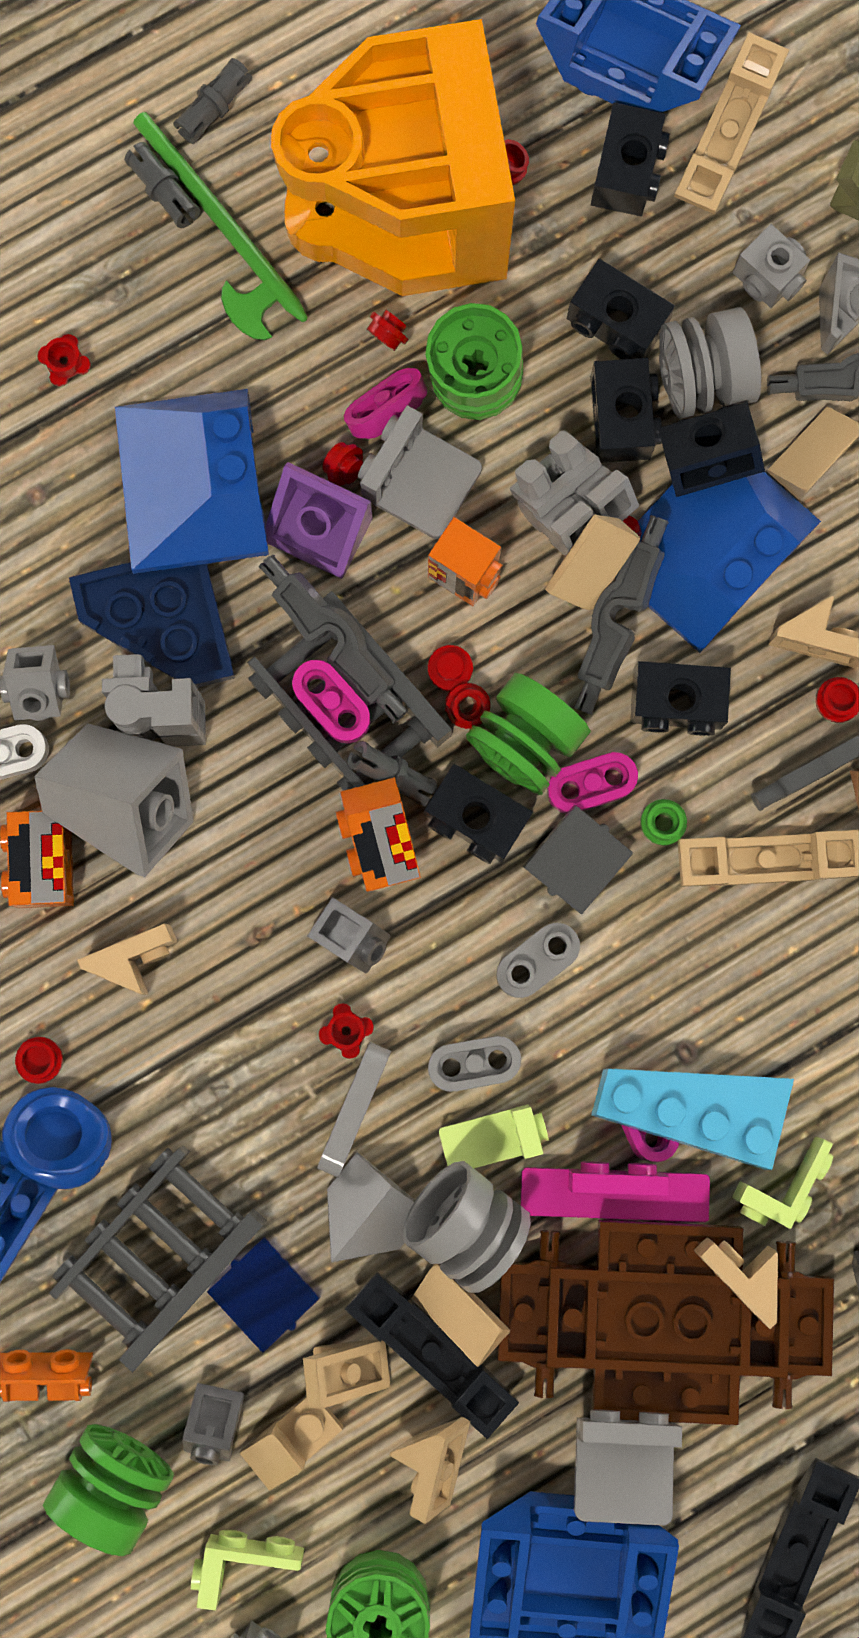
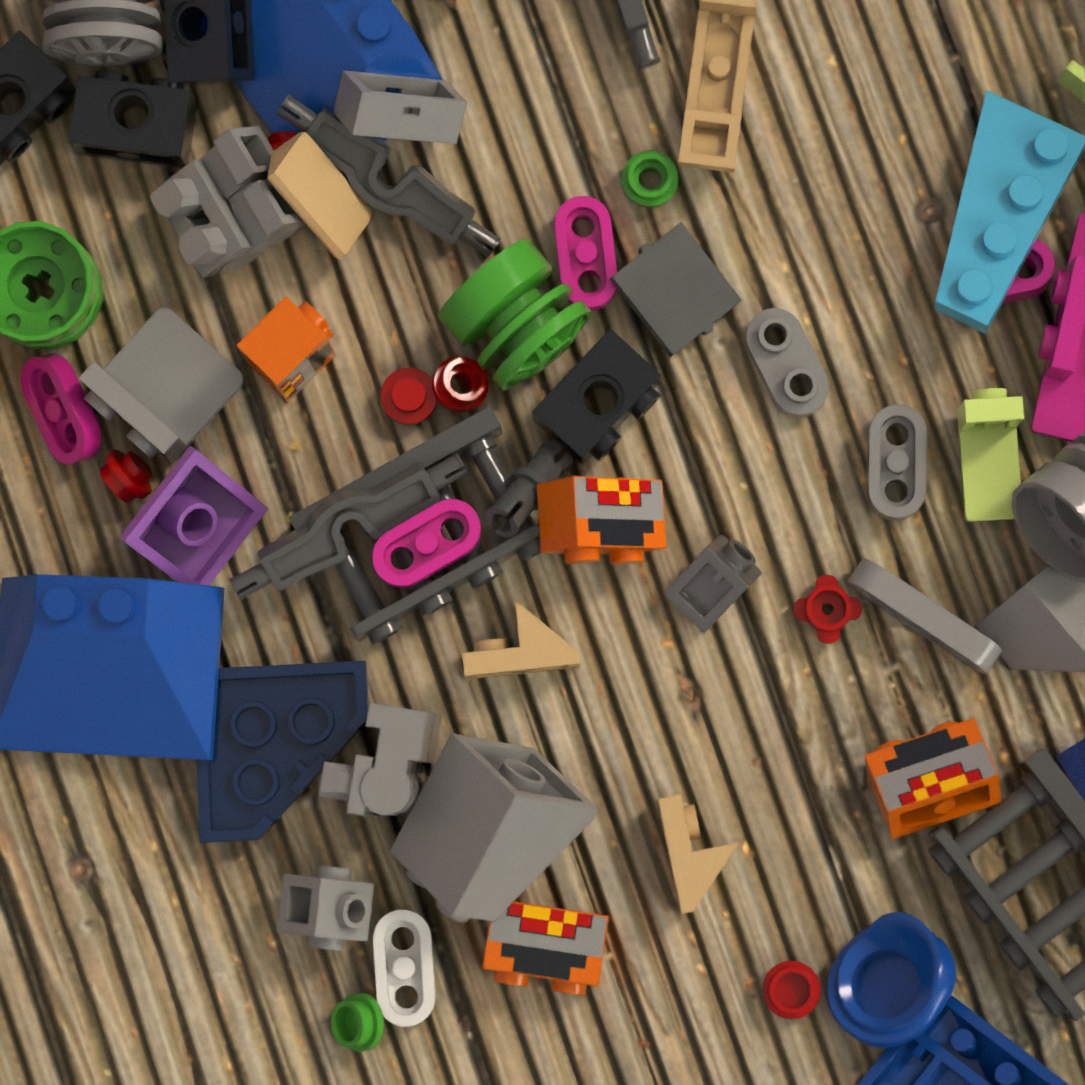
camera: 70 degrees left, 0 degrees up
(224, 1140) = (933, 777): none -> brick
(267, 806) = (538, 651): none -> tan slope
(676, 630) = (419, 112): none -> light grey piece
(705, 685) = (501, 93): black brick -> none

